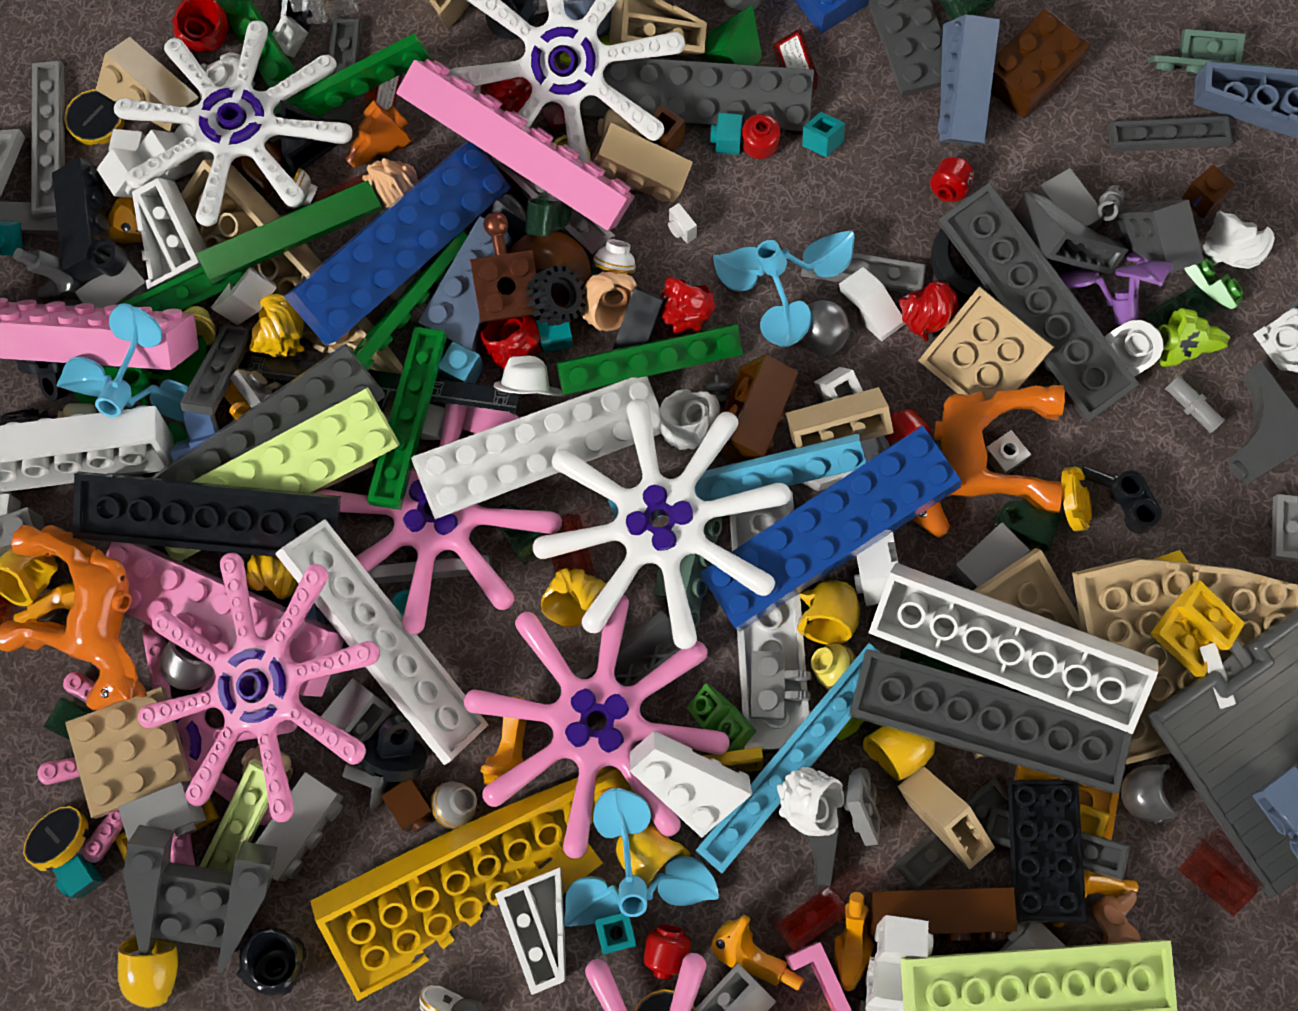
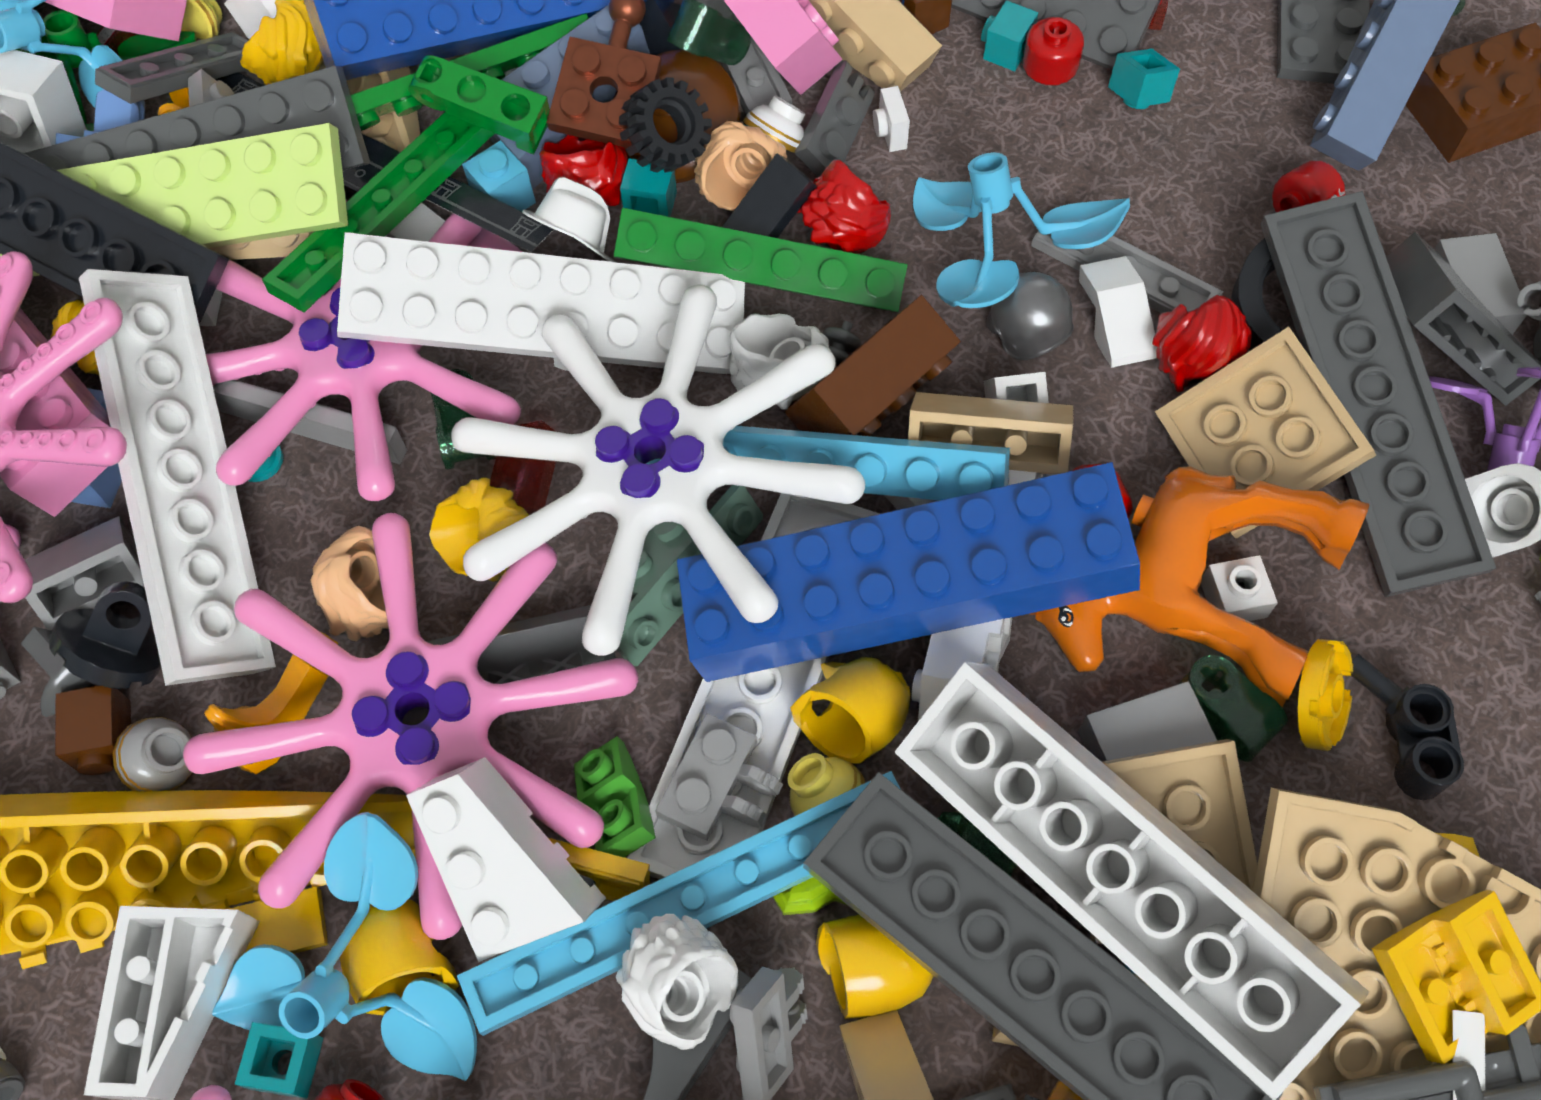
camera: 20 degrees right, 10 degrees down
(435, 325) = (482, 101): none -> green leg
(516, 661) = (350, 586): none -> light nougat hair
(647, 239) = (835, 119): none -> dark grey hinge

